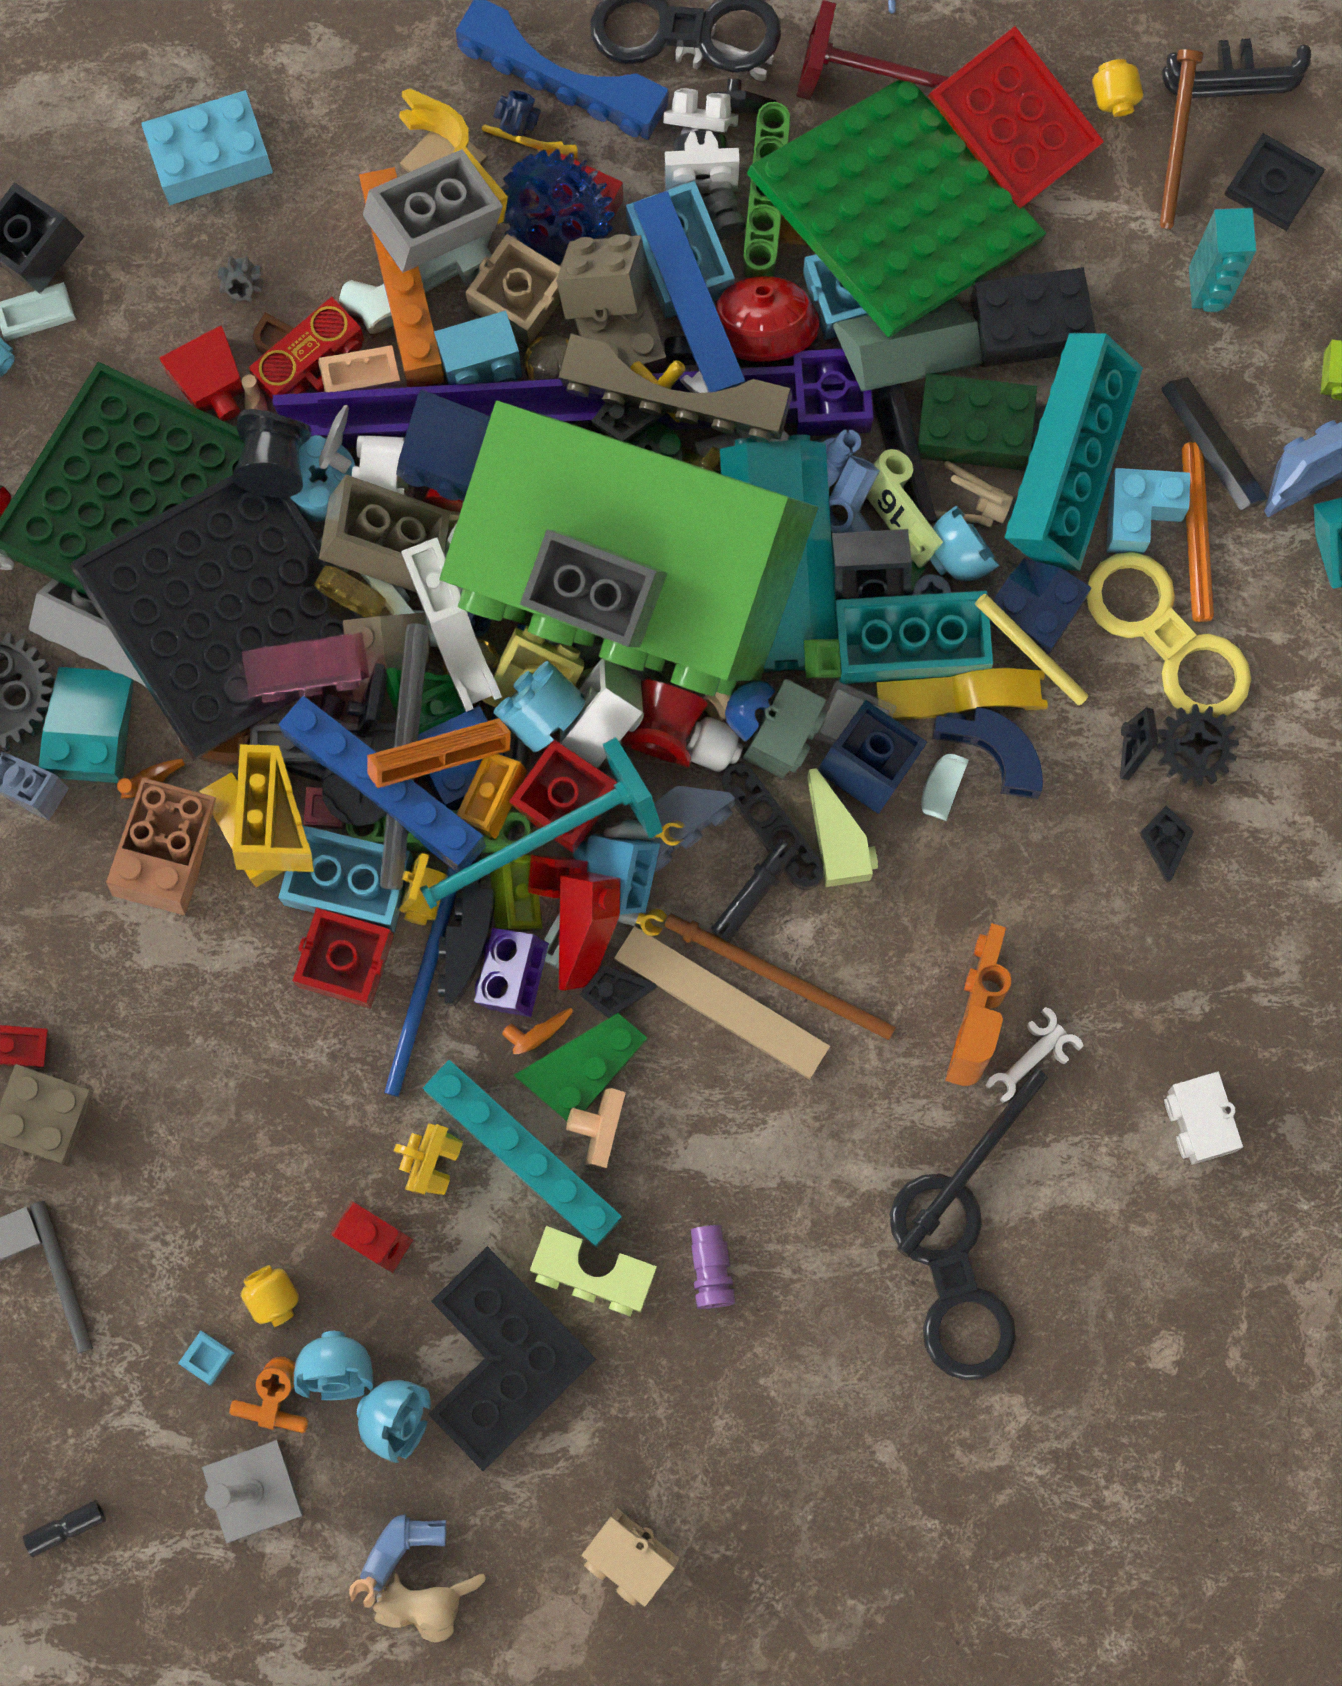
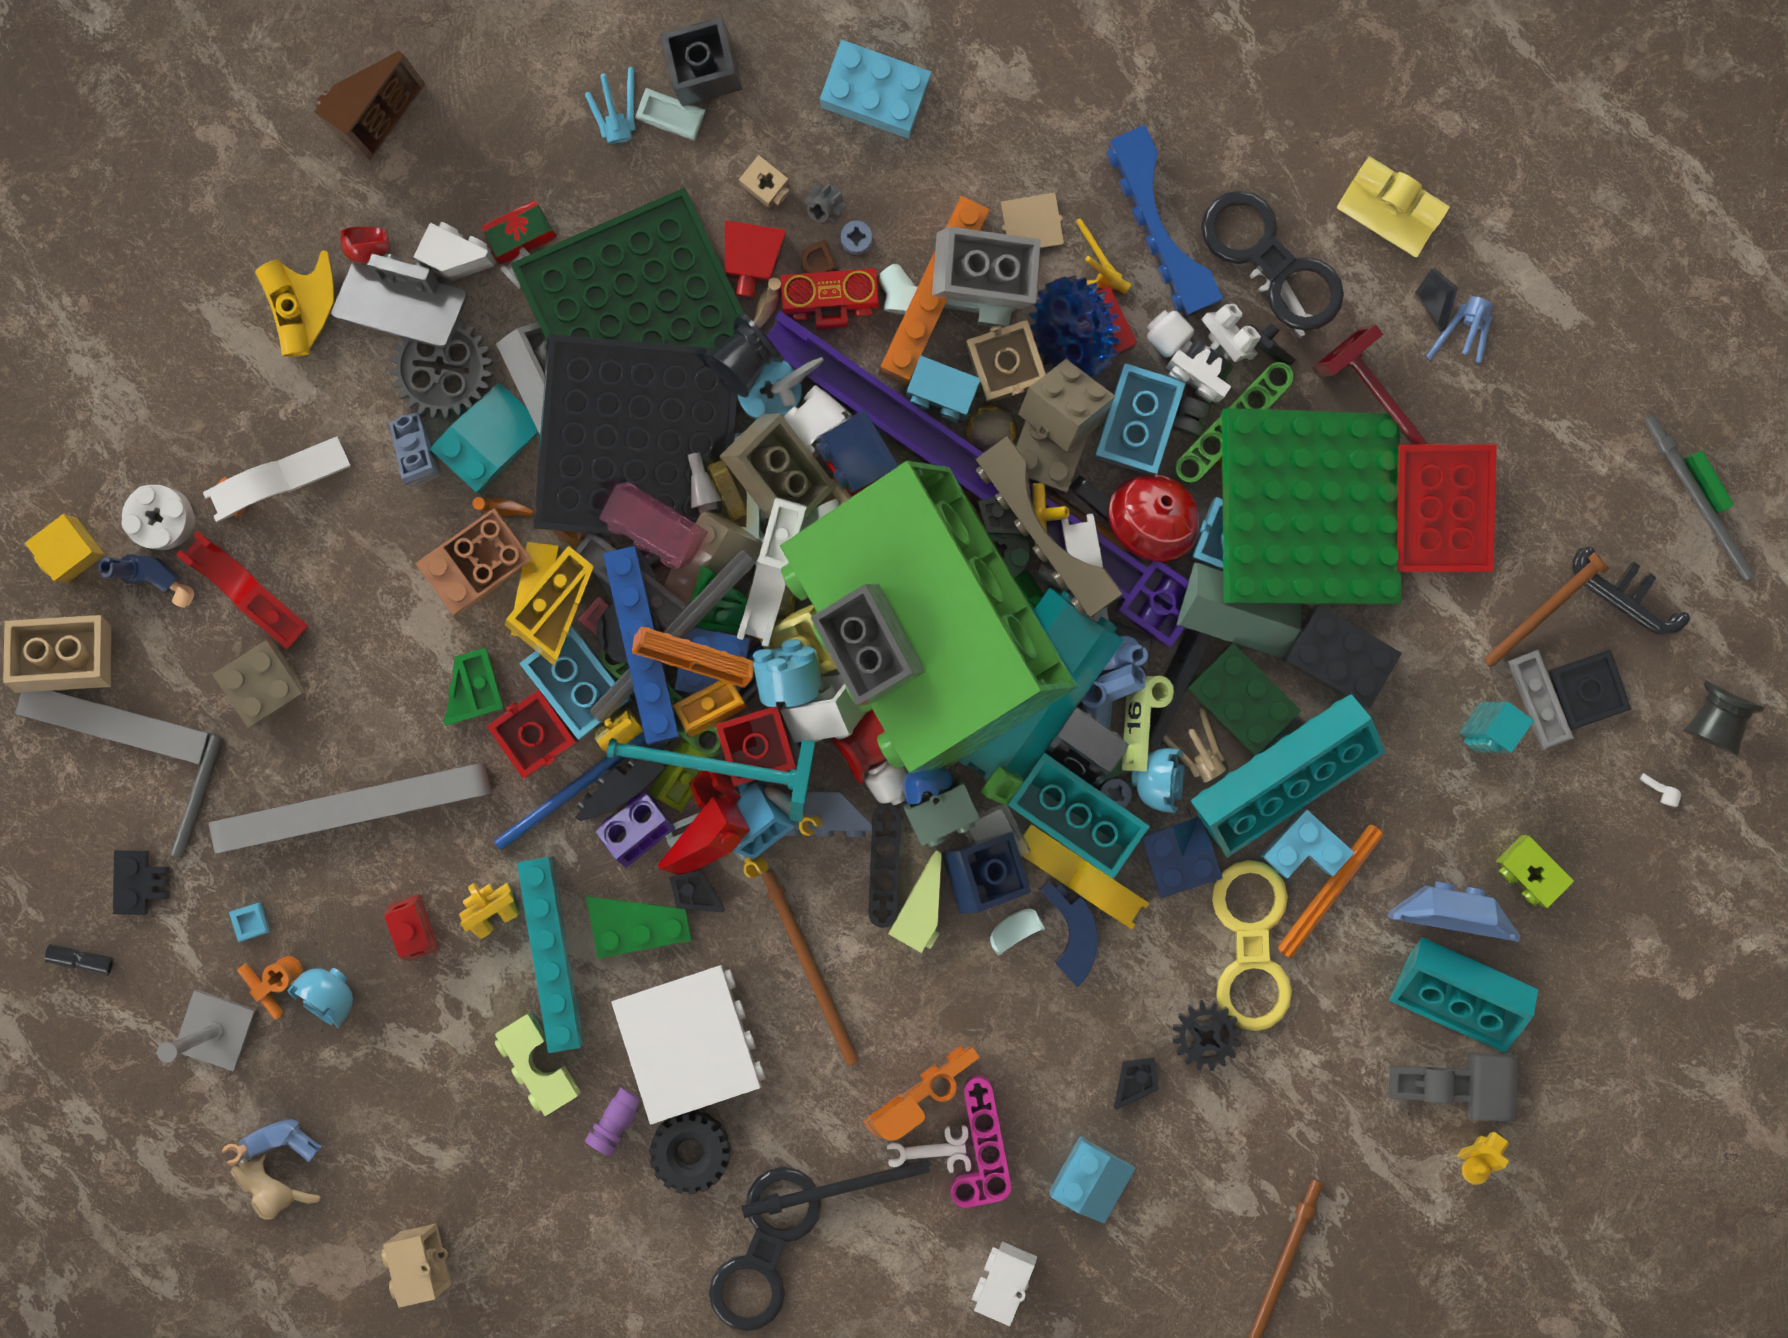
camera: 35 degrees right, 10 degrees up
(64, 1407) = (136, 882): none -> black hinge
(159, 295) = (760, 170): none -> tan brick
(219, 1170) = (349, 807): none -> light grey beam
(252, 964) = (473, 688): none -> green wing
(269, 1296) = (318, 916): yellow head -> none
(295, 297) = (856, 244): none -> sand blue wheel
(326, 606) = (702, 488): none -> light grey cone
(360, 370) = (853, 337): light nougat tile -> none
(371, 704) = (679, 581): black piece -> none
(391, 1418) = (335, 1057): medium azure cylinder -> none
(445, 121) = (1043, 182): yellow piece -> none
(516, 113) = (1107, 231): dark blue gear -> none
(525, 1360) = (450, 1086): black plate -> none
(537, 1035) = (621, 881): orange bar -> none
(598, 1126) = (613, 975): light nougat tile -> none
(644, 157) = (1170, 333): none -> white head
(688, 293) = (1113, 464): blue tile -> none
(709, 462) = (1030, 581): clear yellow bar -> none
(721, 1133) = (688, 1043): none -> white panel
(722, 1003) = (758, 955): tan tile -> none
(755, 889) = (850, 897): black pin -> none
(836, 1232) = (683, 1175): none -> black tyre
(1031, 649) = (1149, 886): light yellow bar -> none
(1069, 1006) = (982, 1139): none -> dark pink beam
(1117, 87) = (1535, 540): yellow head -> none
(1138, 741) = (1171, 1002): black piece -> none
(1202, 963) = (1091, 1180): none -> medium azure slope
(1214, 443) = (1391, 841): black tile -> none
(1270, 236) = (1540, 699): none -> light grey tile

